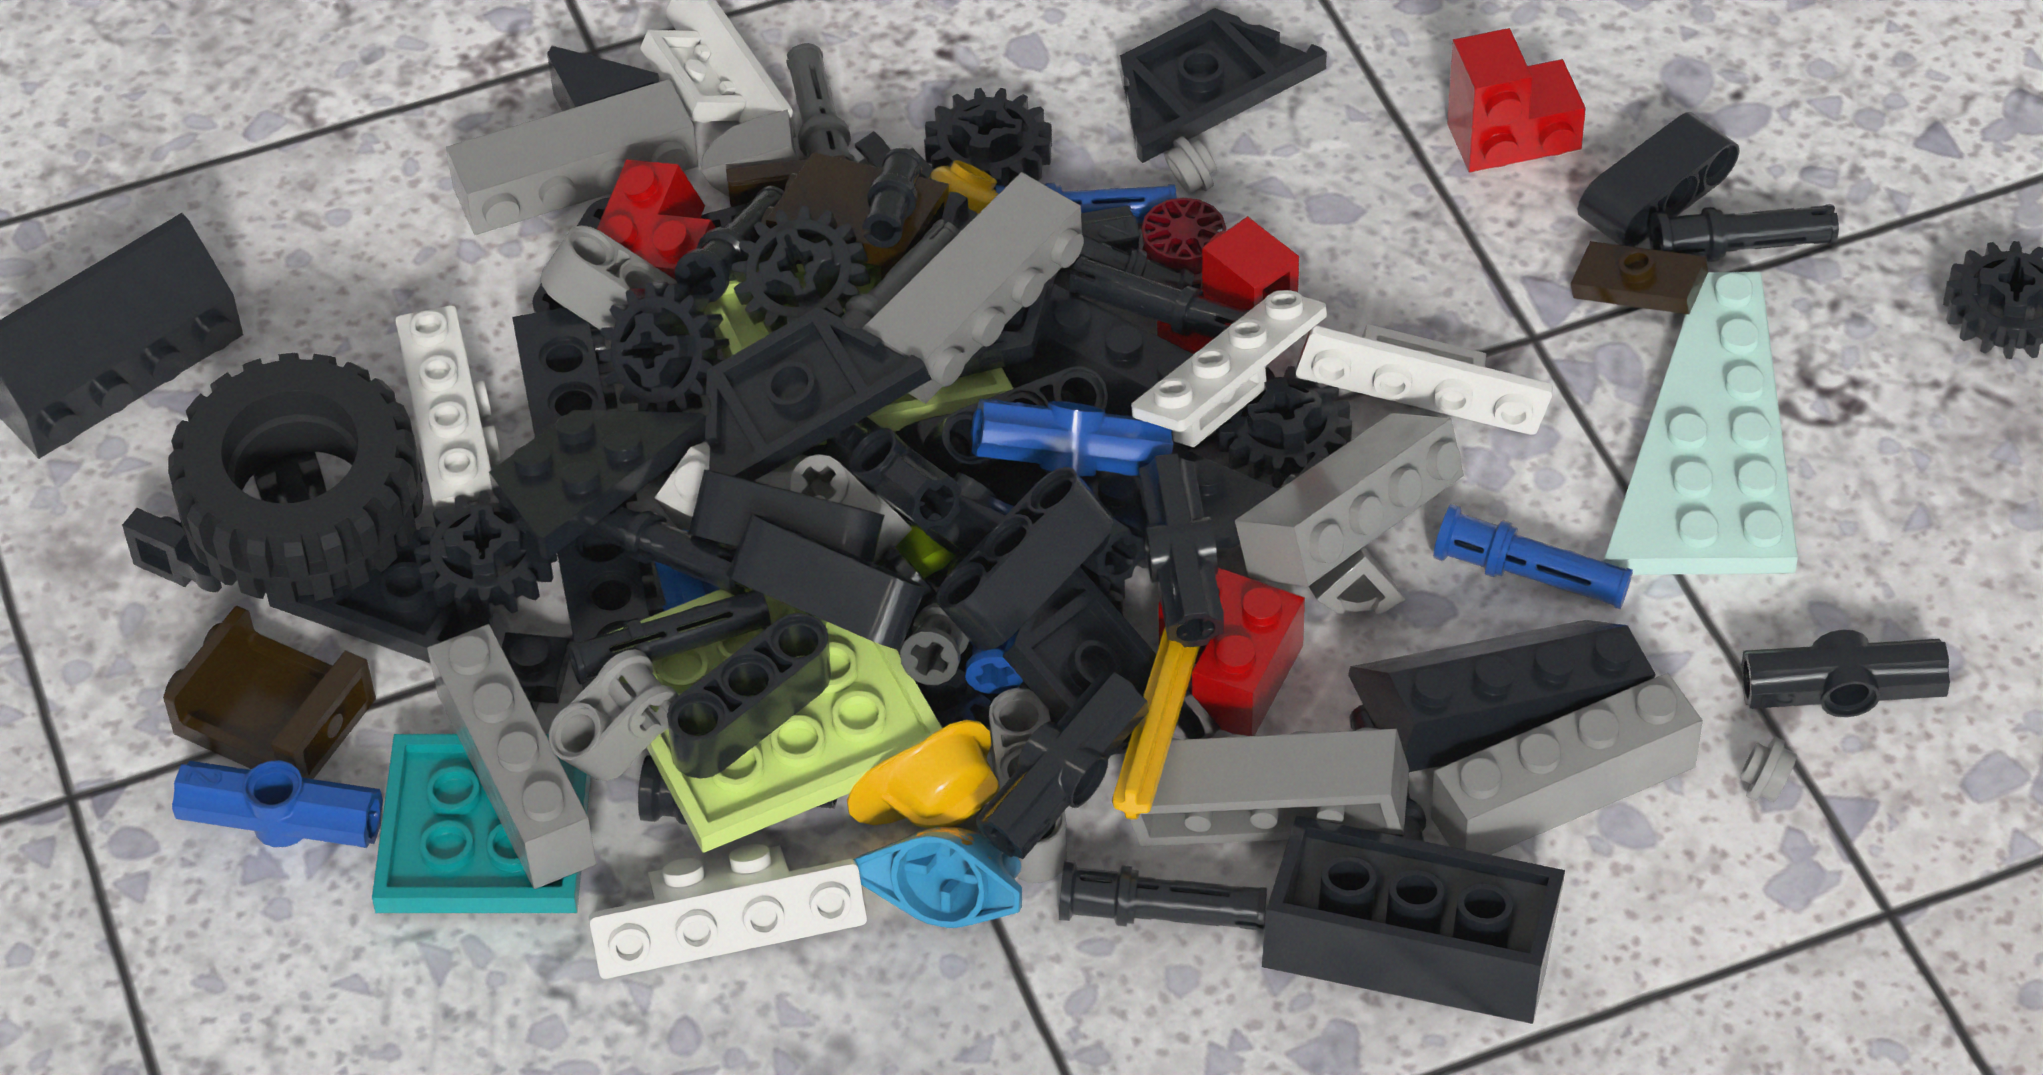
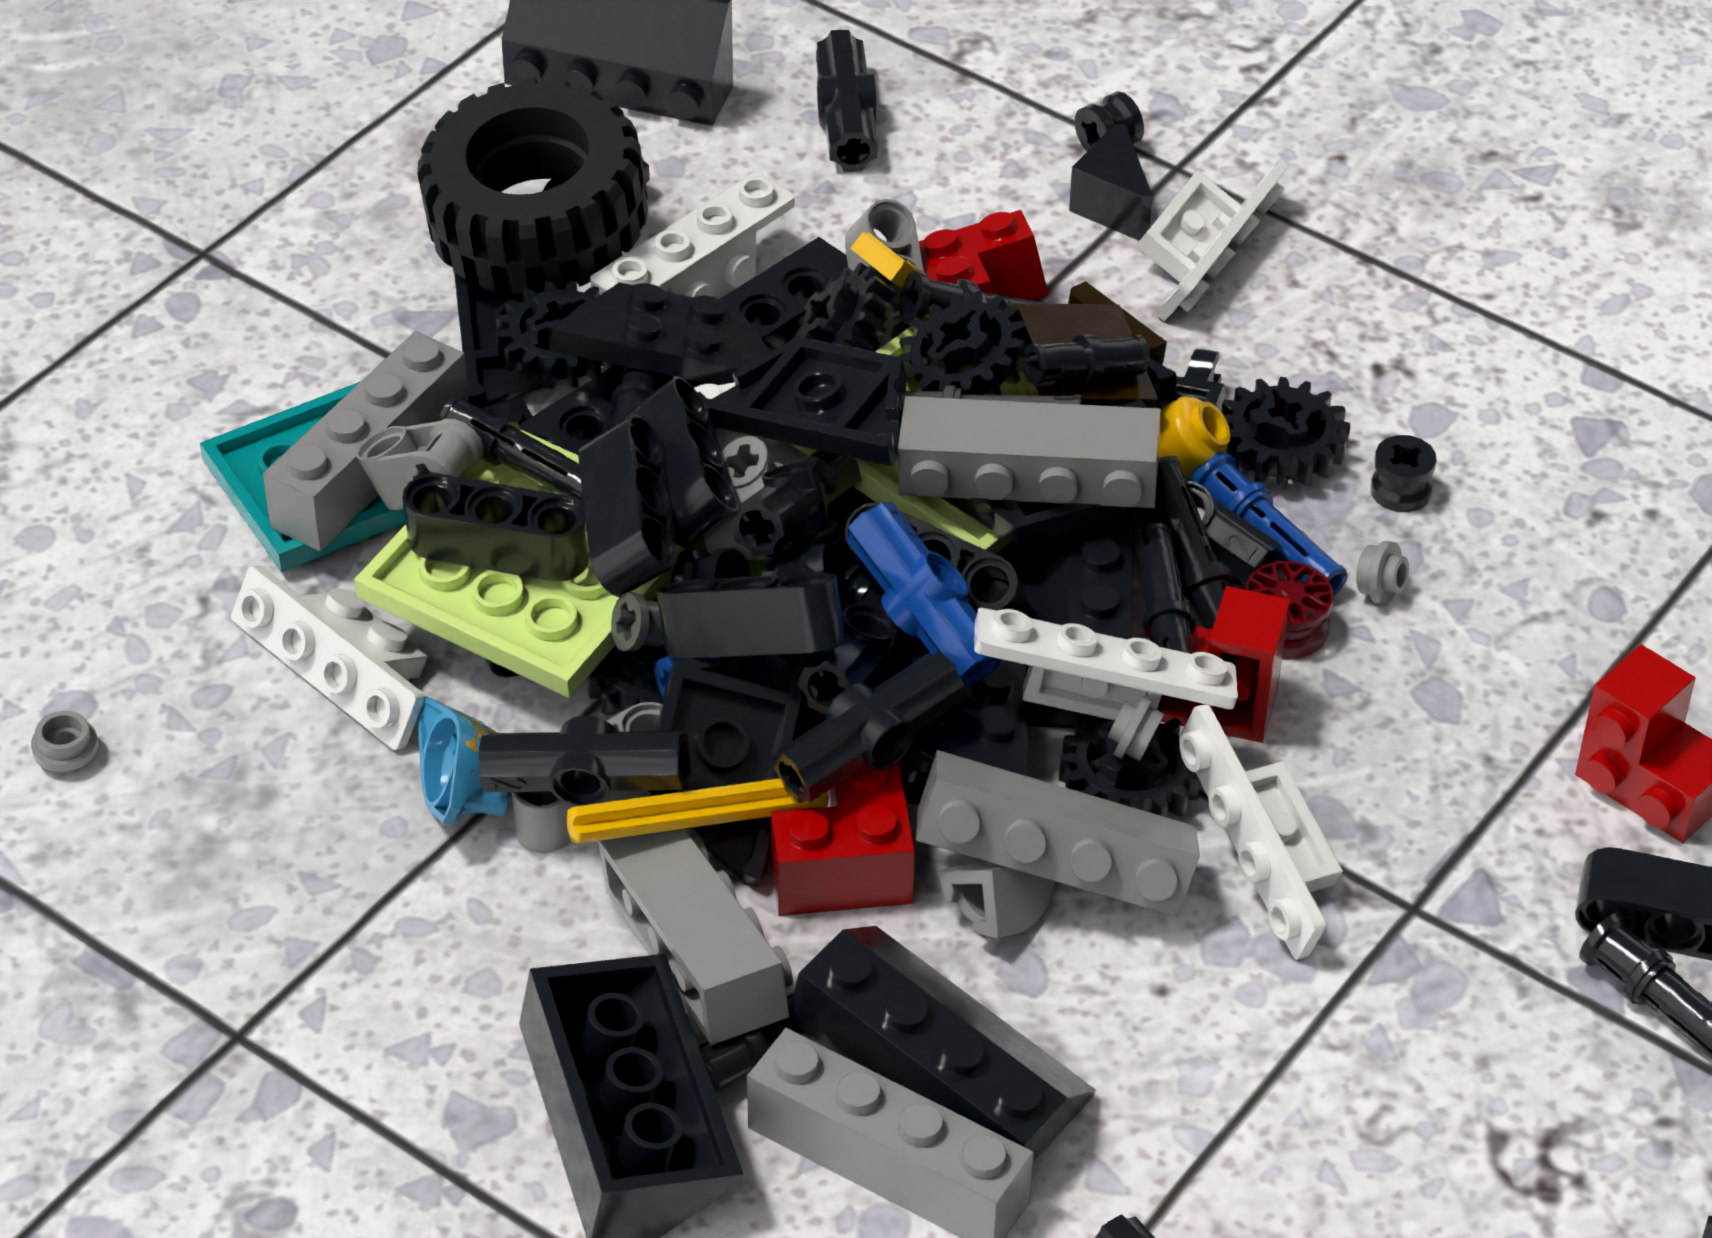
camera: 55 degrees right, 5 degrees down
(266, 699) = (353, 298): dark brown panel -> none
(277, 804) = (254, 348): blue piece -> none
(319, 219) = (846, 100): none -> black piece
(520, 62) = (1116, 108): none -> black wheel
(568, 155) = (1066, 209): light grey brick -> none
(643, 270) = (883, 258): none -> yellow tile
(749, 144) = (1138, 291): light grey brick -> none
(821, 128) = (1209, 326): dark grey pin -> none
(929, 783) = (536, 693): yellow piece -> none
(1091, 96) = (1403, 473): none -> black wheel
(1130, 896) = (529, 896): black pin -> none
(1206, 77) = (1498, 536): black wing -> none
(1289, 388) = (1135, 728): none -> light grey plate
(1502, 550) = (1119, 988): blue pin -> none
(1639, 277) = (1542, 946): dark brown plate -> none
(1713, 458) = (1366, 1107): light aqua wing -> none

